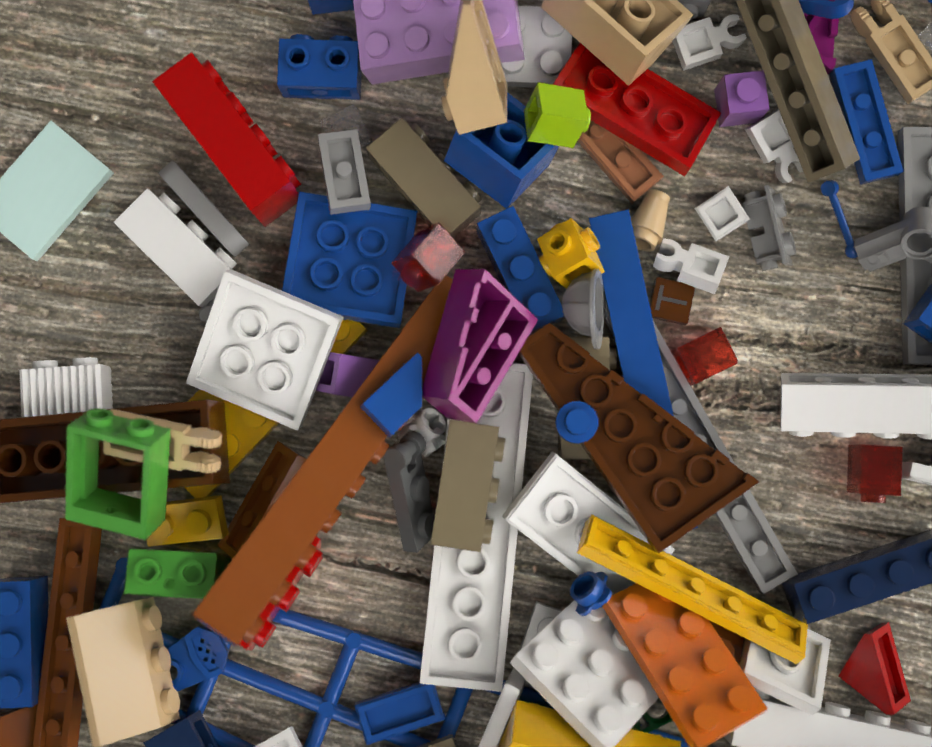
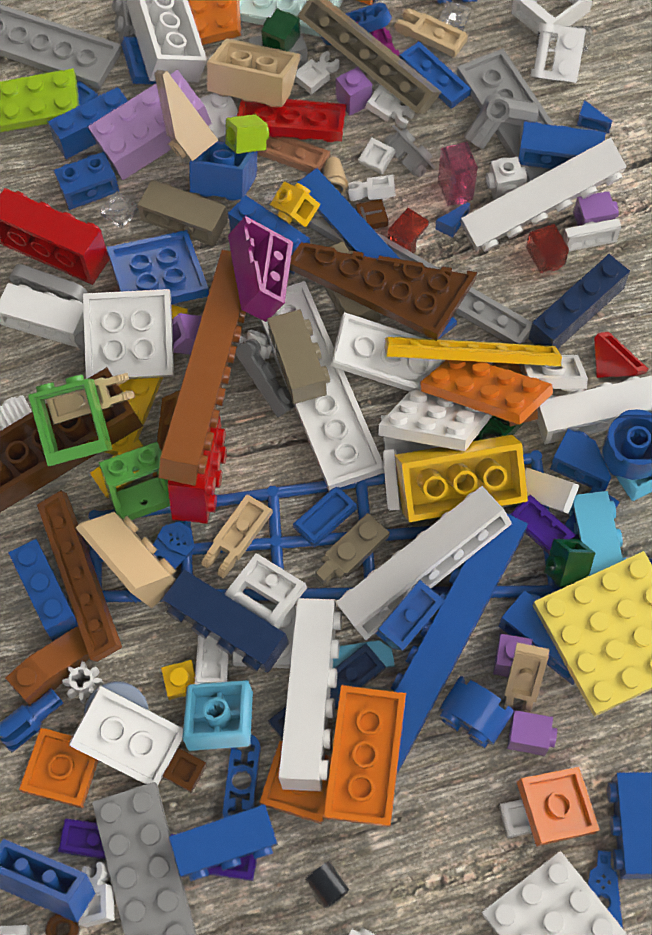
camera: 25 degrees left, 20 degrees down
(282, 685) = (237, 534): none -> tan hinge
(344, 171) = (130, 222): light grey plate -> none
(397, 398) = (227, 314): blue tile -> none
(428, 258) = (207, 245): clear red brick -> none
(576, 422) = (346, 282): blue plate -> none
(585, 306) = (316, 224): light grey piece -> none
(590, 592) = (408, 381): blue plate -> none
(770, 365) = (451, 222): none -> blue piece
(813, 308) = (457, 174): none -> clear pink brick
(830, 189) = (435, 118): blue hinge -> none
(864, 343) = (505, 176): none -> white brick

